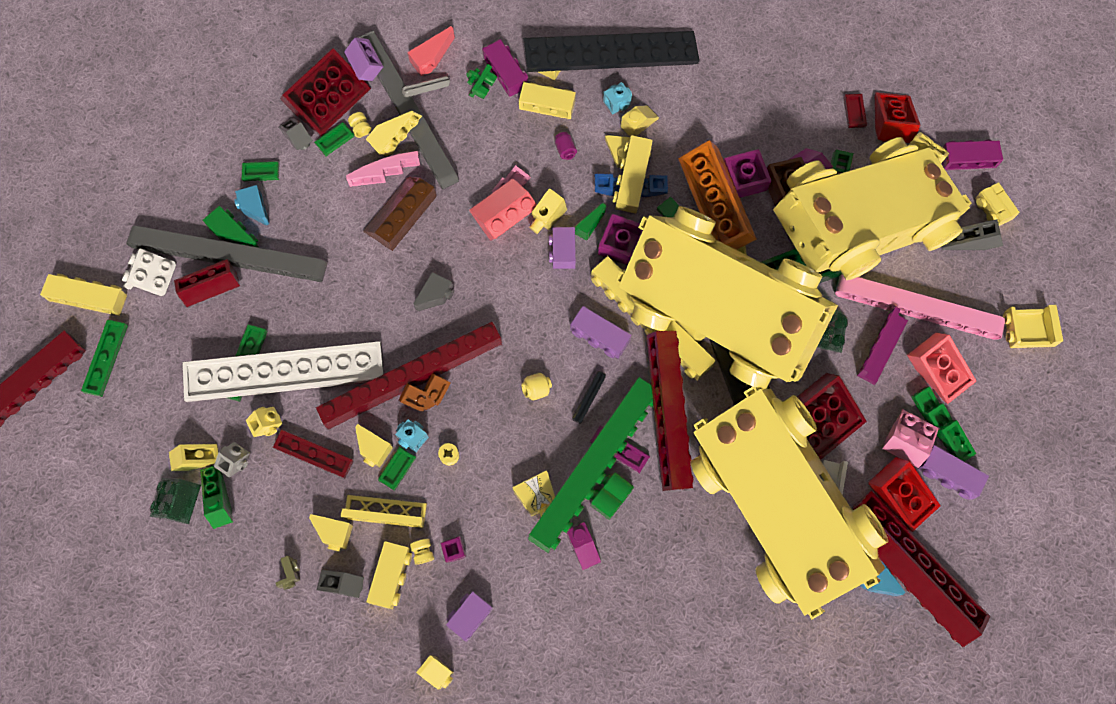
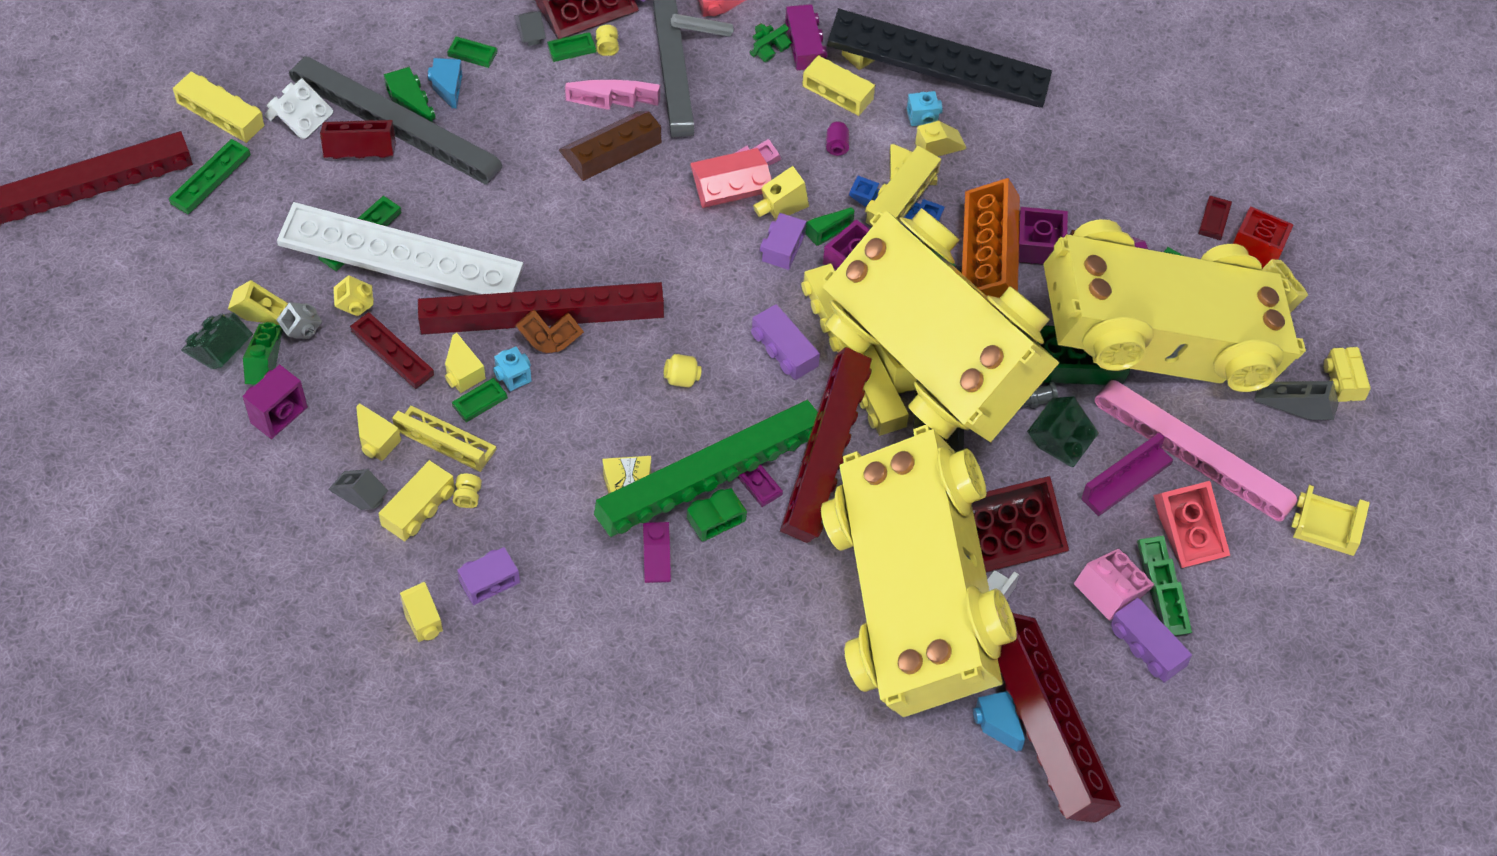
camera: 20 degrees right, 15 degrees down
(244, 538) = (275, 401): none -> magenta brick
(290, 568) = (307, 463): olive bracket -> none
(390, 133) = (641, 56): light yellow slope -> none
(434, 293) = (609, 236): dark grey slope -> none
(451, 457) = (543, 410): light yellow wheel -> none
(453, 549) = (503, 502): magenta brick -> none
(588, 397) = (739, 405): black axle -> none
(904, 493) = (1078, 641): red slope -> none
(972, 155) = (1340, 310): magenta brick -> none

